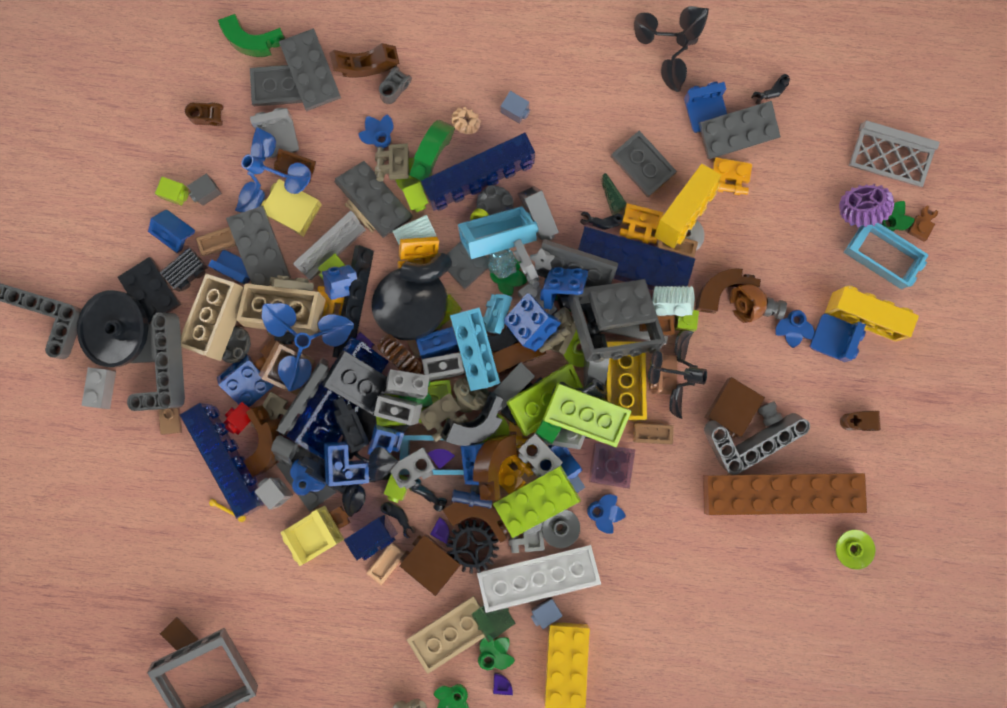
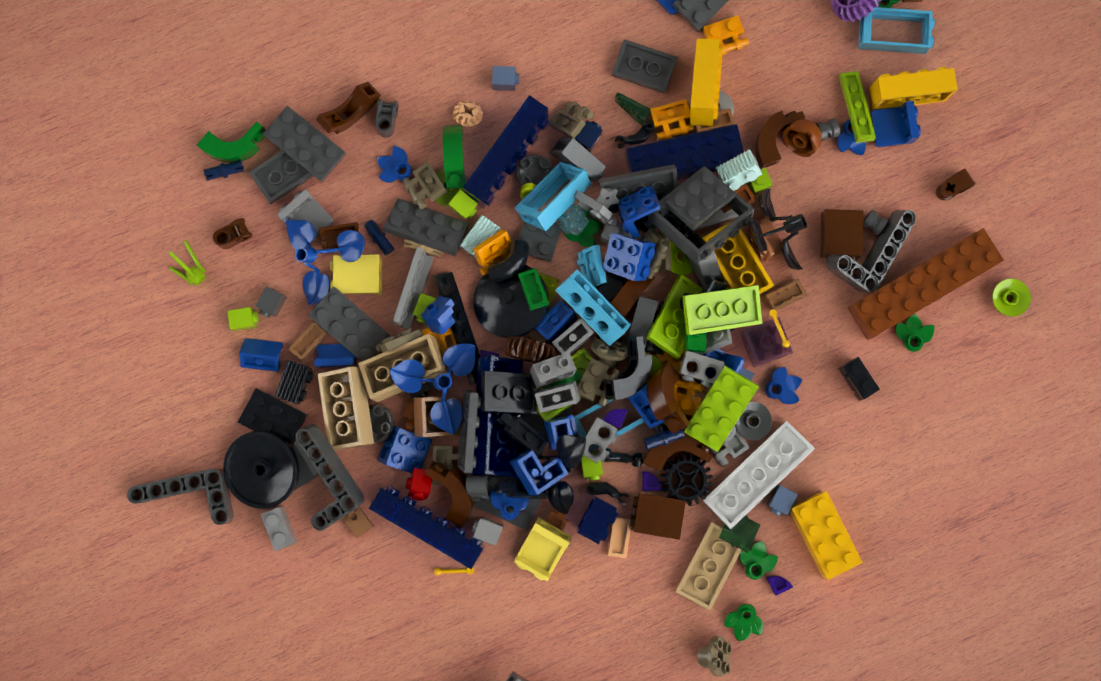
camera: 30 degrees left, 0 degrees up
(153, 130) = (194, 275): none -> lime plant
(230, 55) = (224, 170): none -> dark blue pin
(328, 186) = (379, 237): none -> dark blue axle
(431, 304) = (533, 289): none -> green plate
(547, 174) = (569, 124): none -> dark tan plate
(560, 197) = (589, 135): none -> dark blue brick
(631, 443) = (773, 313): none -> yellow hinge
(676, 544) = (858, 378): none -> black brick
(751, 529) = (914, 330): none -> green plate
(812, 303) = (857, 107): none -> lime tile

